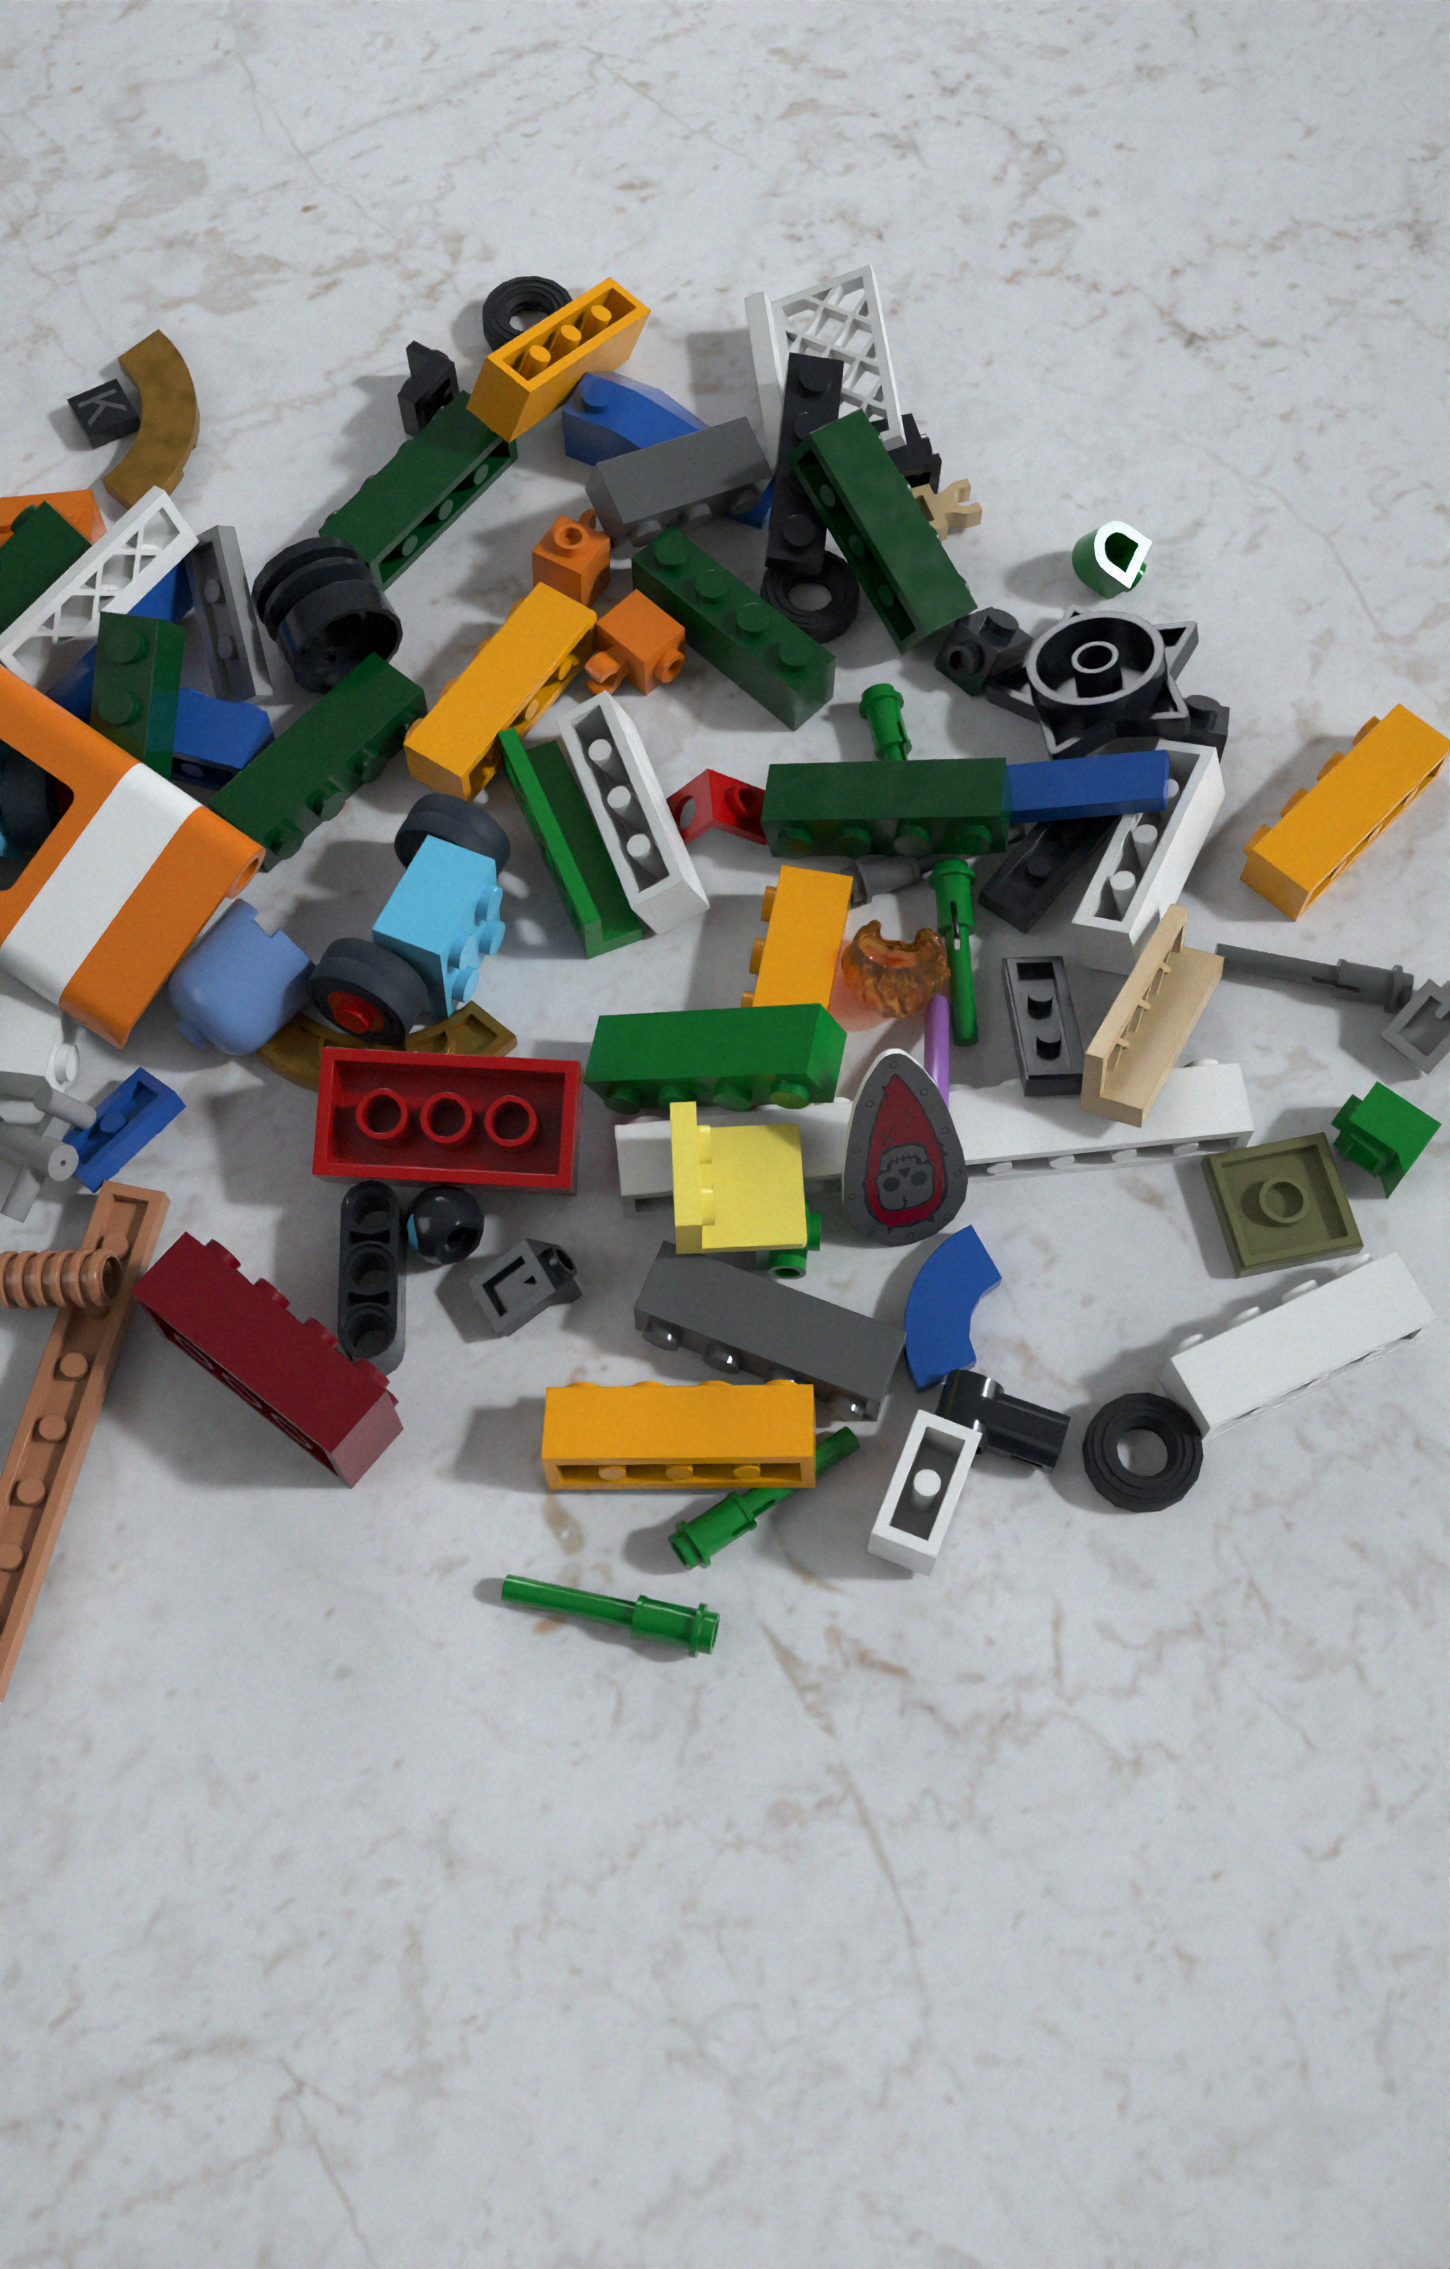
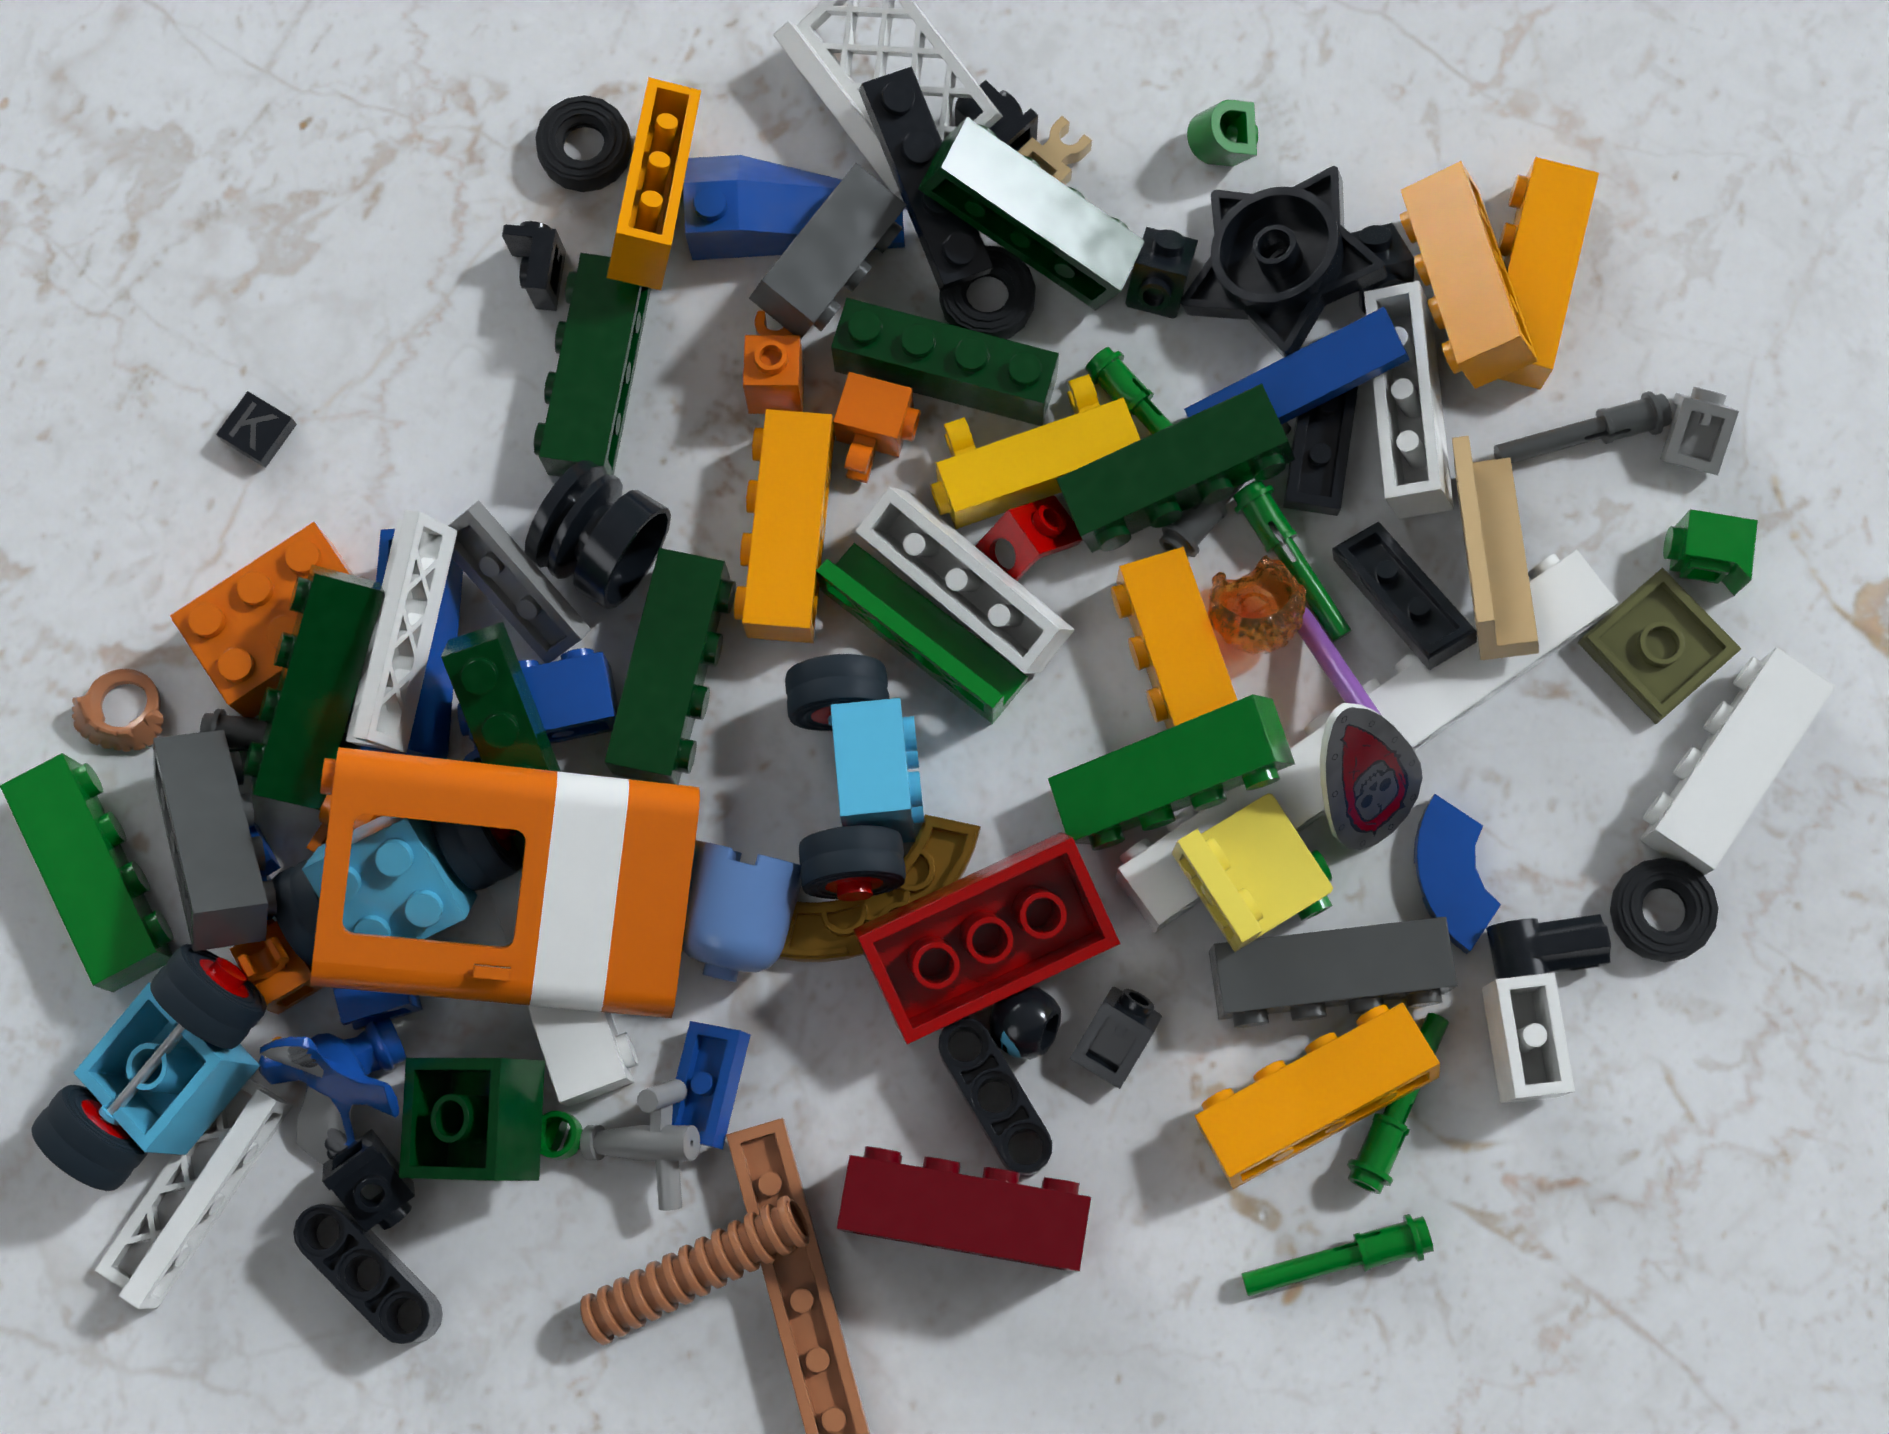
camera: 25 degrees left, 10 degrees up
(167, 421) = (322, 410): pearl gold tile -> none
(749, 740) = (1027, 465): none -> yellow brick
(1268, 772) = (1467, 277): none -> light orange brick

